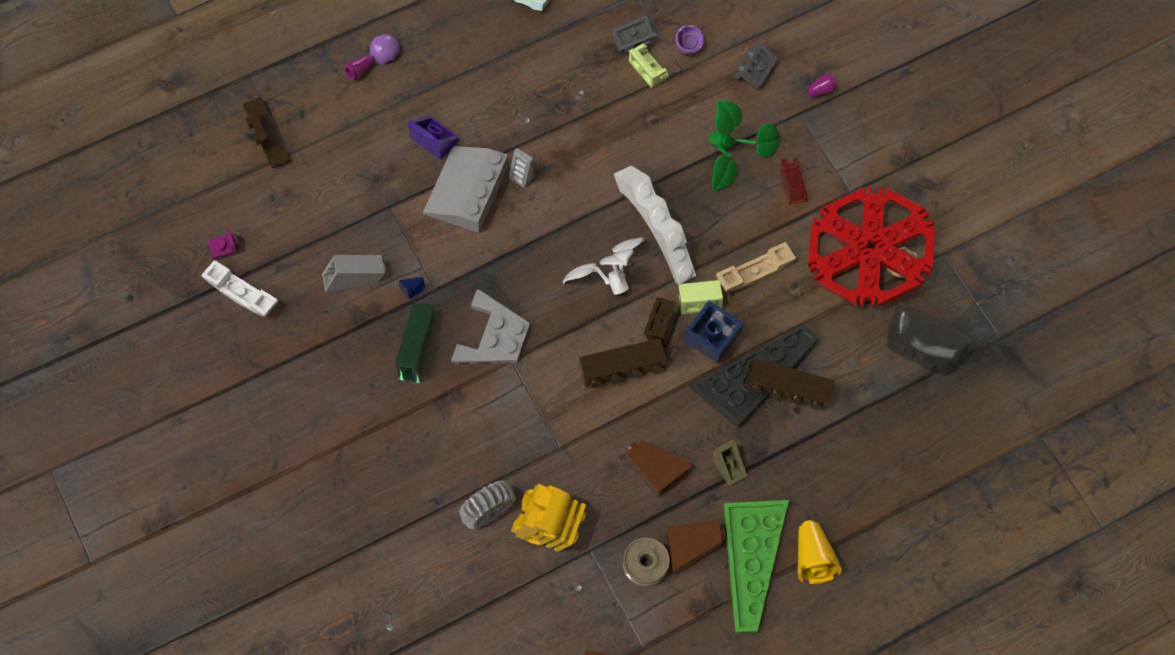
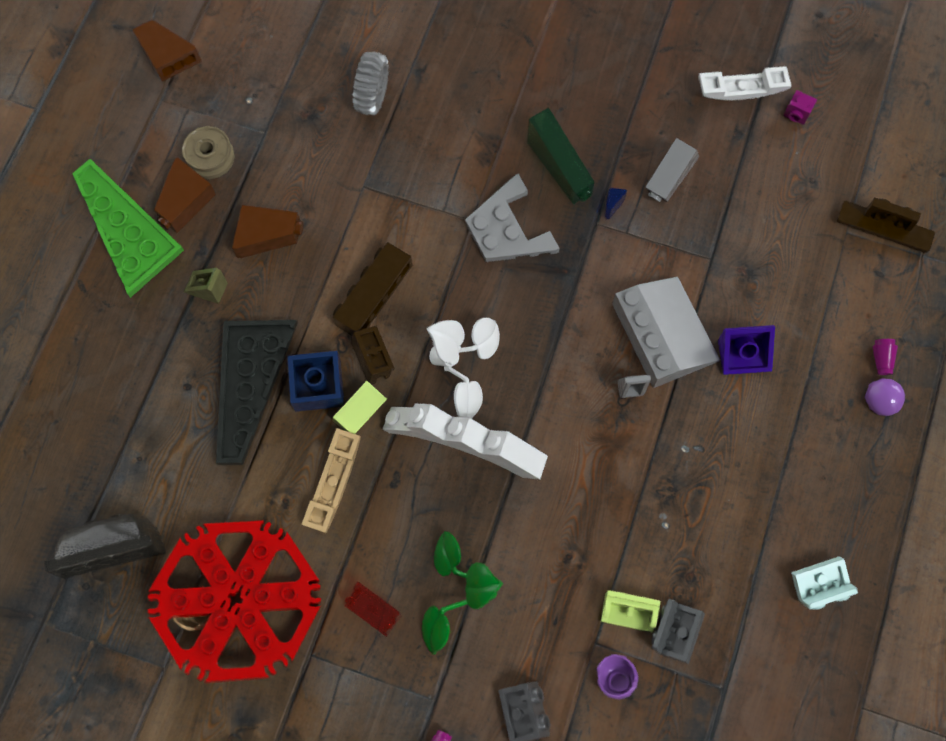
camera: 140 degrees right, 5 degrees up
(549, 518) = (309, 107): yellow piece -> none
(789, 383) = (204, 389): dark brown brick -> none
(815, 555) = (67, 265): yellow cone -> none

